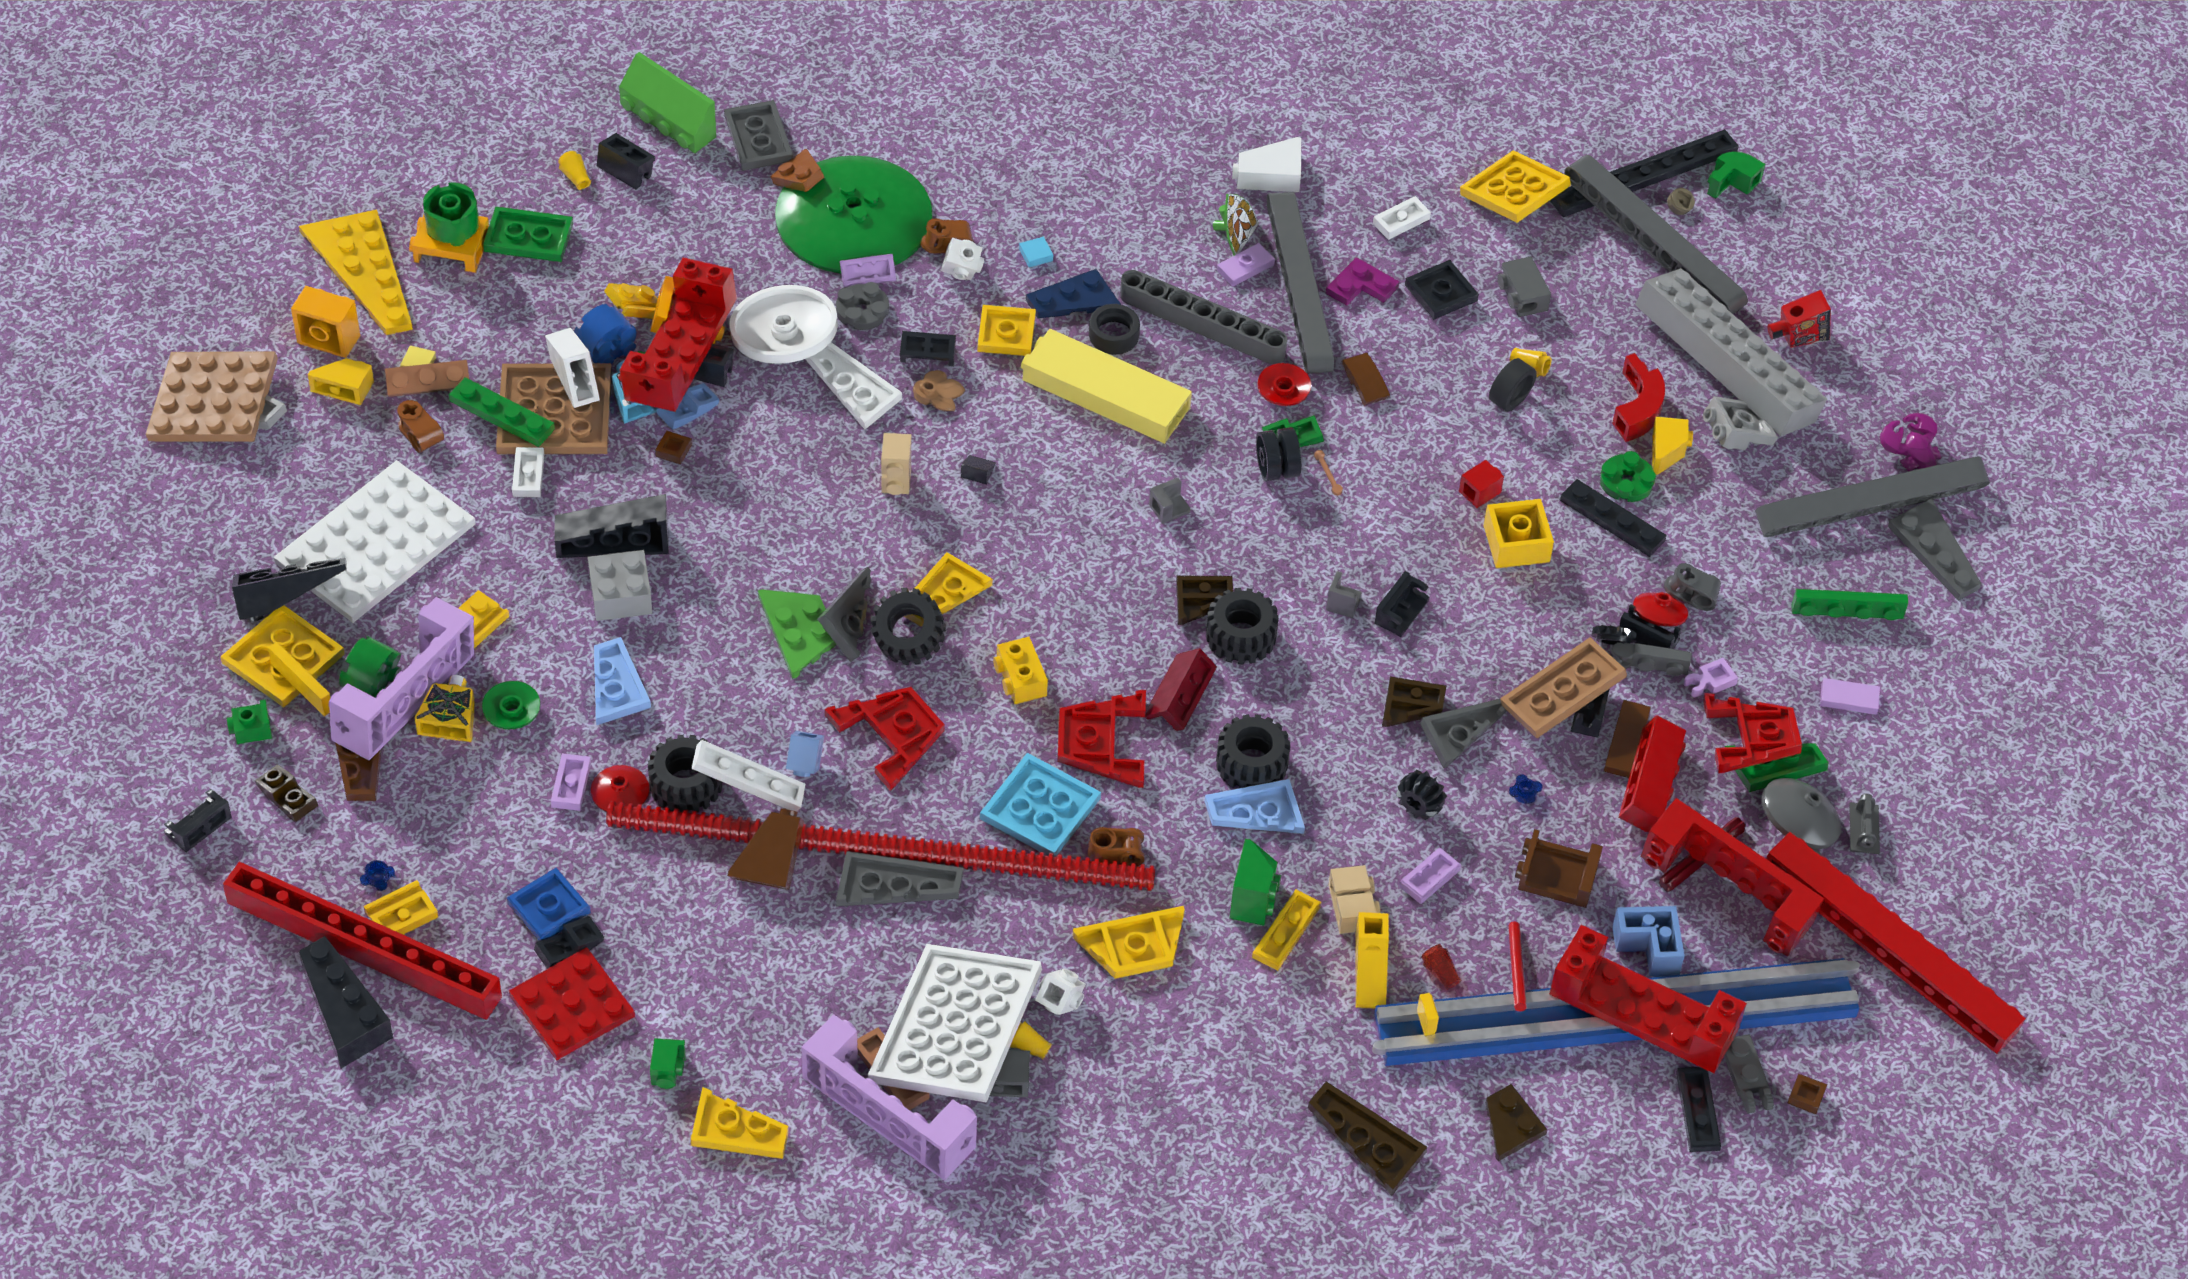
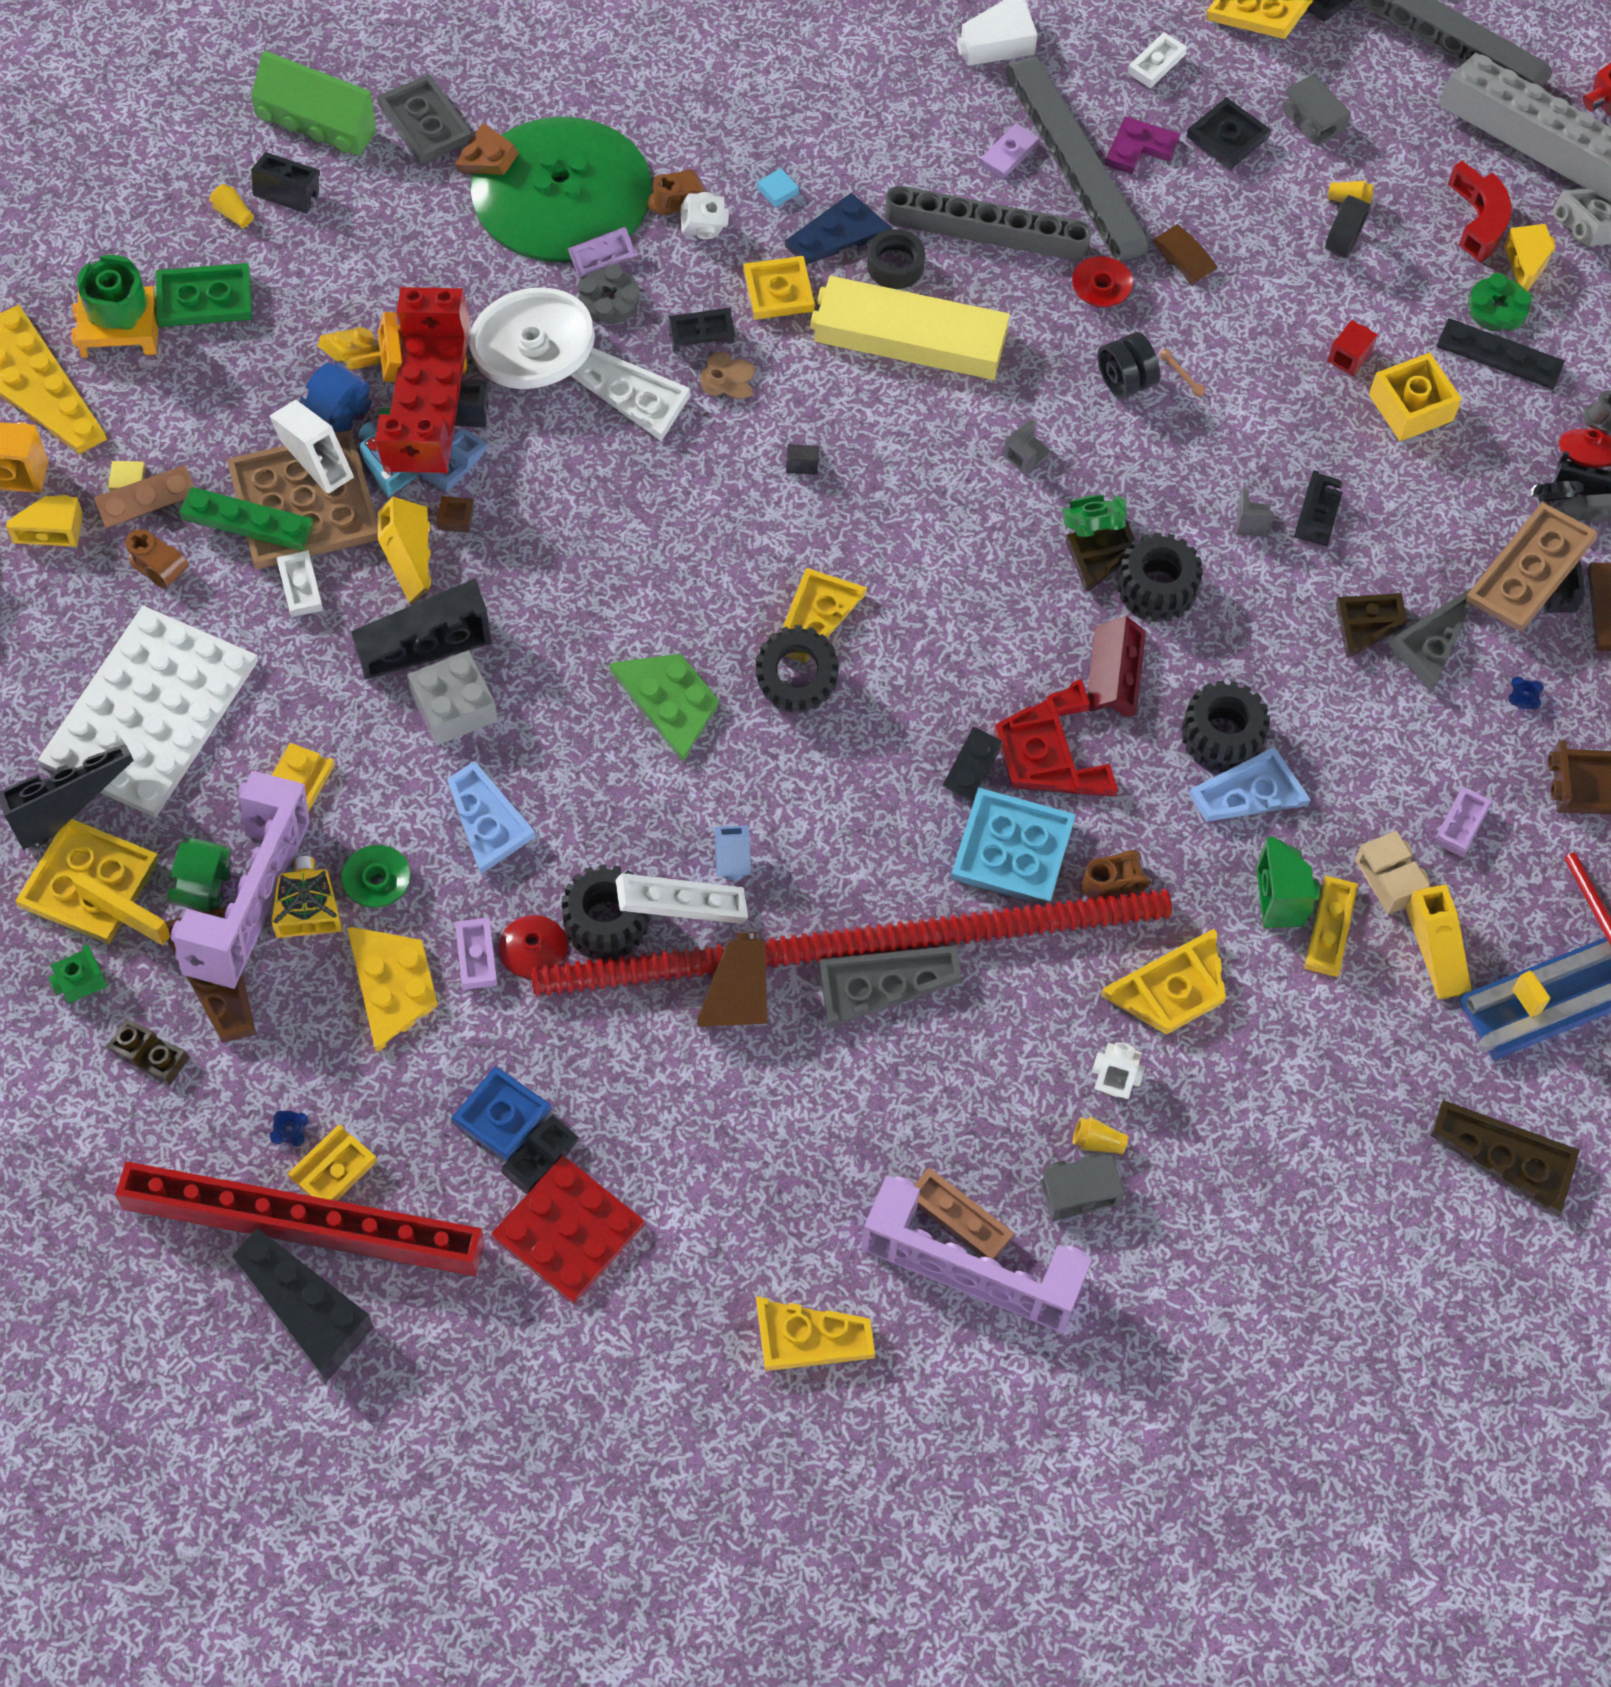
camera: 15 degrees left, 10 degrees up
(199, 822) = (56, 1115): black hinge -> none
(497, 787) = (392, 981): none -> yellow wing
(622, 457) = (404, 539): none -> yellow slope
(667, 1062) = (704, 1277): green brick -> none
(846, 615) = (720, 669): dark grey wing -> none
(896, 463) = (716, 476): tan piece -> none
(900, 721) = (825, 785): red wing -> none
(955, 1023) = (1018, 1143): white plate -> none
(1021, 670) = (936, 689): yellow brick -> none
(1030, 733) = (973, 763): none -> black plate
(1205, 564) = (1094, 514): none -> green plate
(1238, 221) = (985, 102): shield -> none
(1306, 430) = (1142, 323): green slope -> none
(1421, 794) = (1423, 730): black gear -> none
(1440, 965) = (1513, 926): clear red cone -> none

